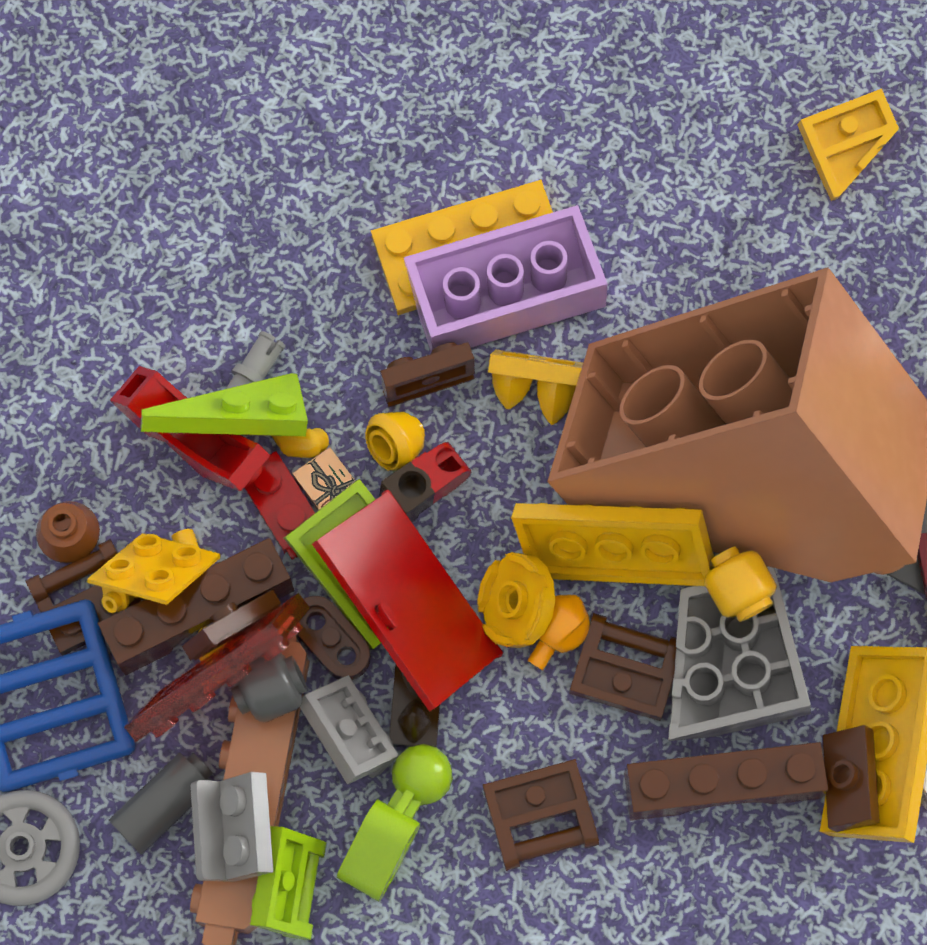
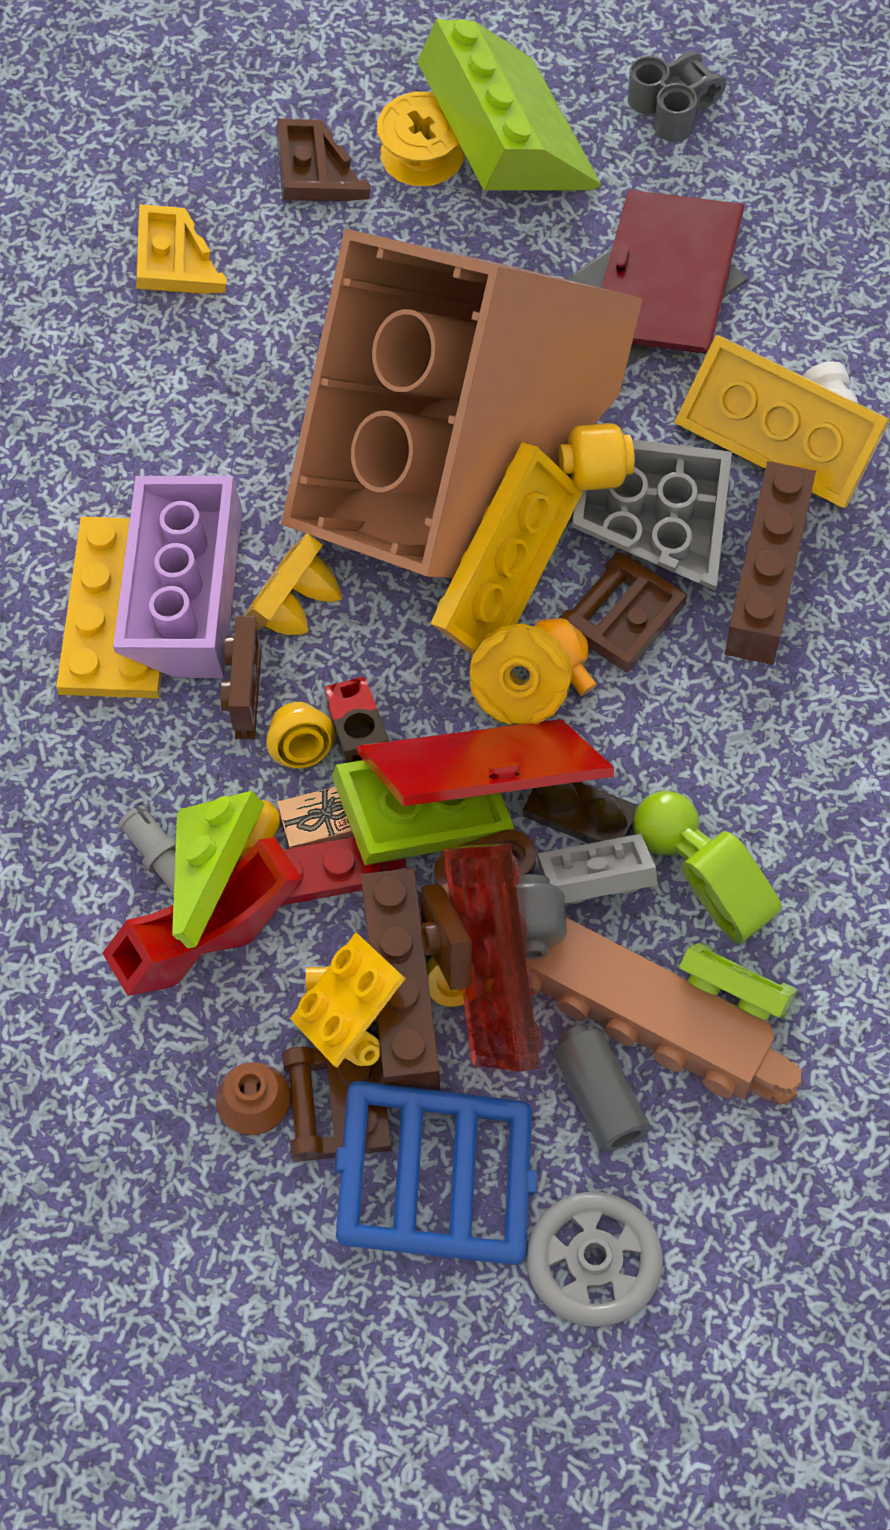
camera: 70 degrees left, 10 degrees down
(231, 828) = (670, 998): light grey bracket -> none
(536, 798) = (725, 735): reddish brown plate -> none
(851, 778) = (829, 454): reddish brown plate -> none

